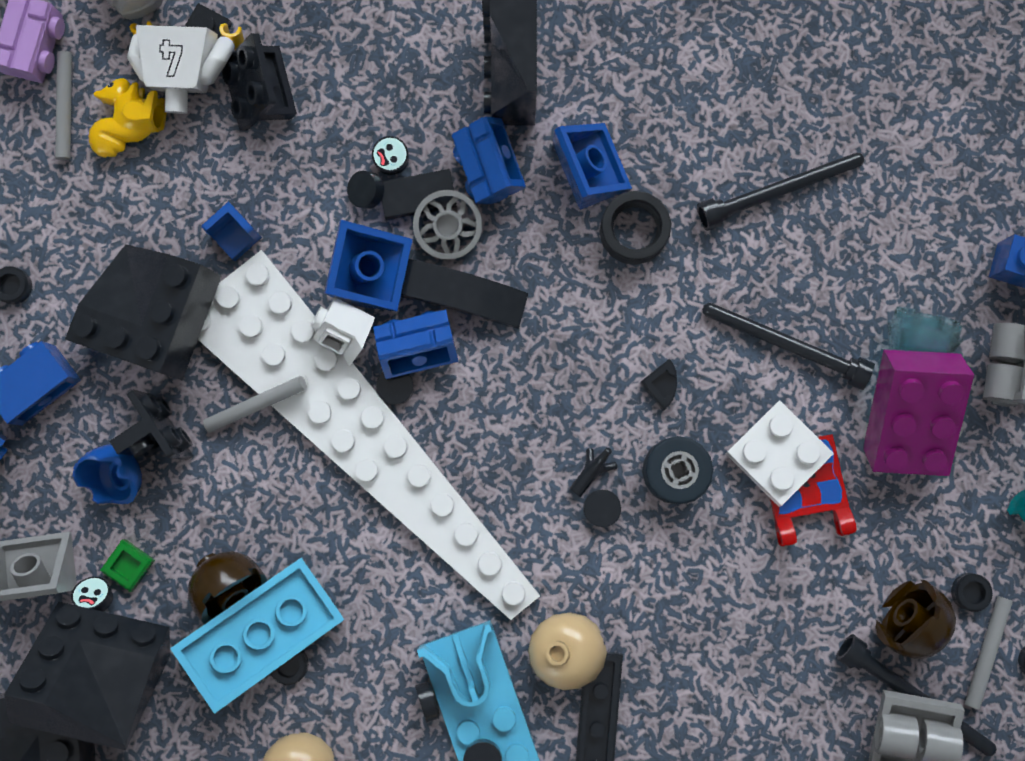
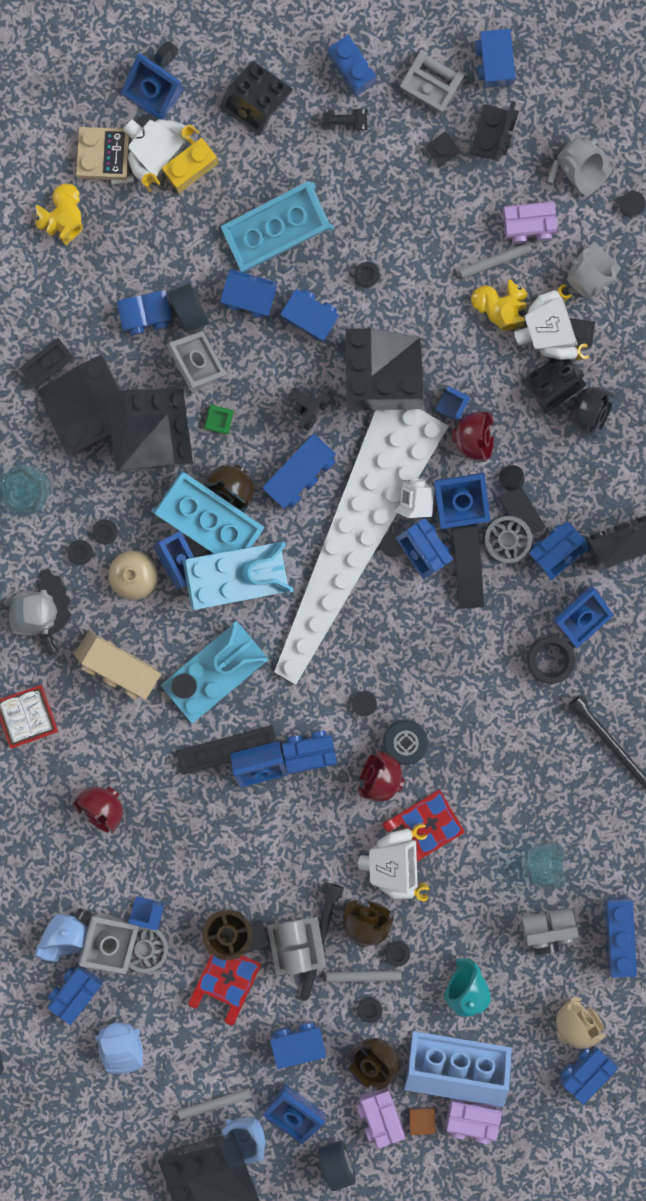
camera: 70 degrees right, 5 degrees up
(92, 594) = (194, 406): tile -> none
(108, 475) = (271, 388): blue hair -> none
(243, 478) = (300, 472): none -> blue brick
(255, 404) = (342, 454): light grey bar -> none
(285, 218) = (474, 436): none -> dark red cylinder
(298, 700) = (172, 553): none -> blue brick
(312, 49) = (590, 410): none -> black cylinder
(351, 626) = (236, 575): none -> medium azure plate
(390, 155) = (540, 484): tile -> none
(427, 701) = (205, 639): black tile -> none
(567, 651) = (268, 713): tan cylinder -> none
(592, 470) = (385, 688): black bar -> none
(634, 693) = (258, 764): none -> blue slope
(643, 613) = (309, 752): none -> blue brick
(662, 384) = (456, 713): black tile -> none
(717, 524) = (381, 778): none -> dark red cylinder
(779, 453) = (440, 802): white plate -> none
(847, 550) = (395, 864): none -> white torso
(855, 371) = (510, 831): black piece -> none
(917, 412) = (495, 876): magenta brick -> none

